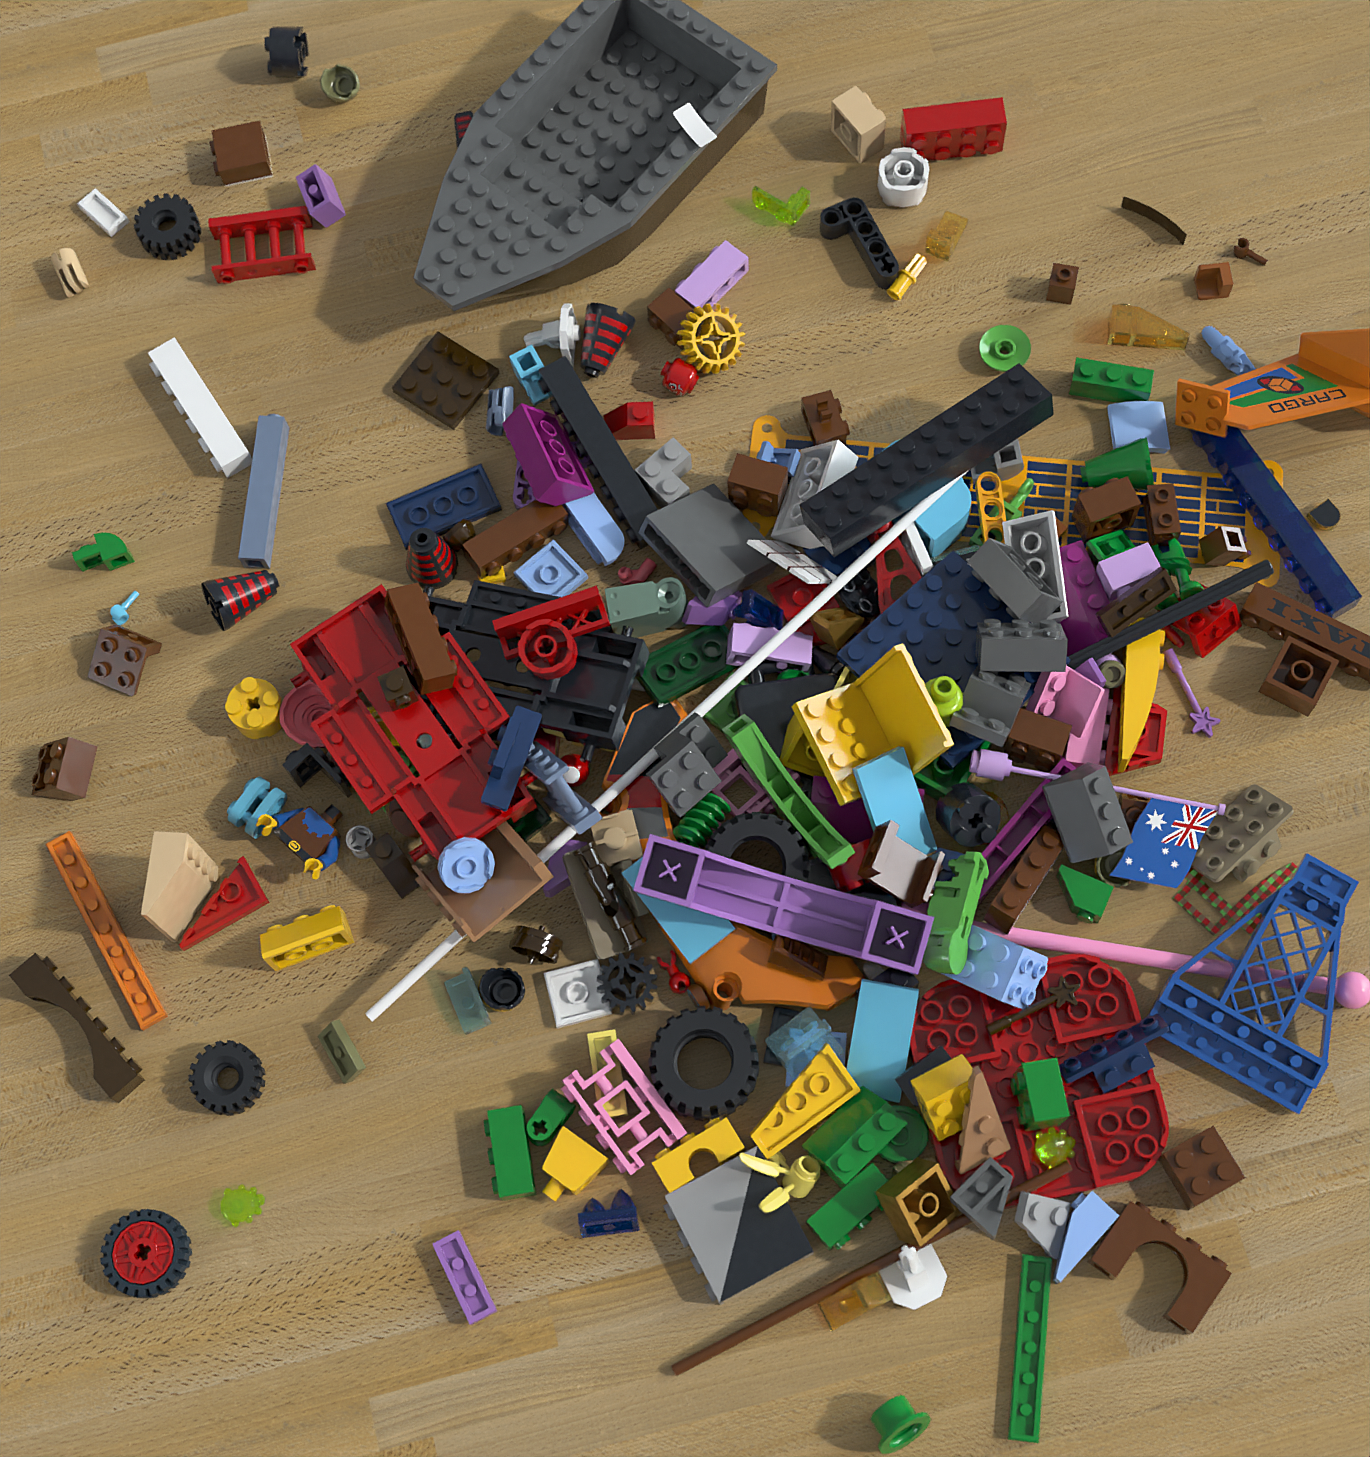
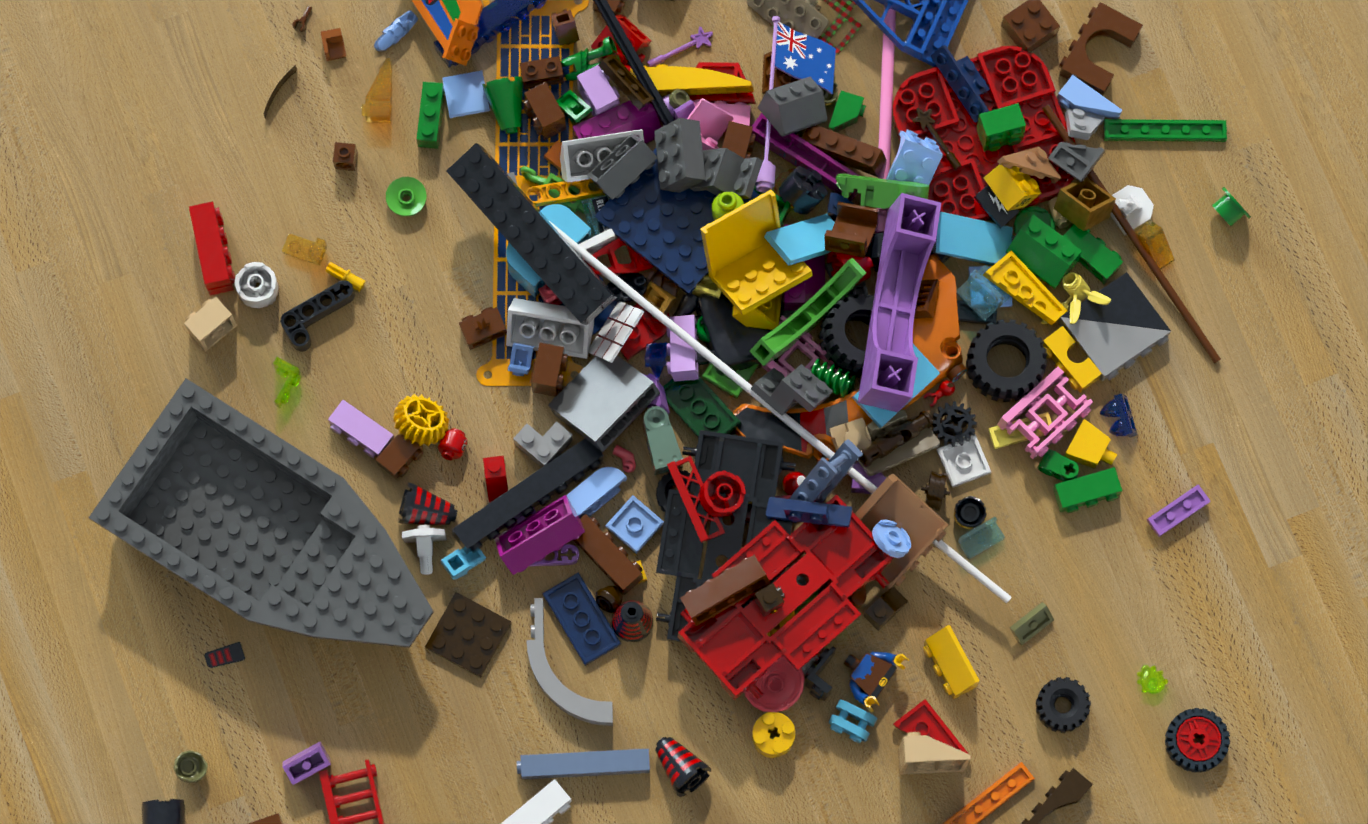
camera: 105 degrees left, 5 degrees up
(357, 838) = (868, 632): light grey wheel -> none
(368, 461) = (573, 704): none -> light grey arch
(499, 408) = (500, 581): sand blue arm -> none
(694, 125) = (253, 435): white sticker -> none
(1054, 1147) = (1033, 120): clear neon green piece -> none

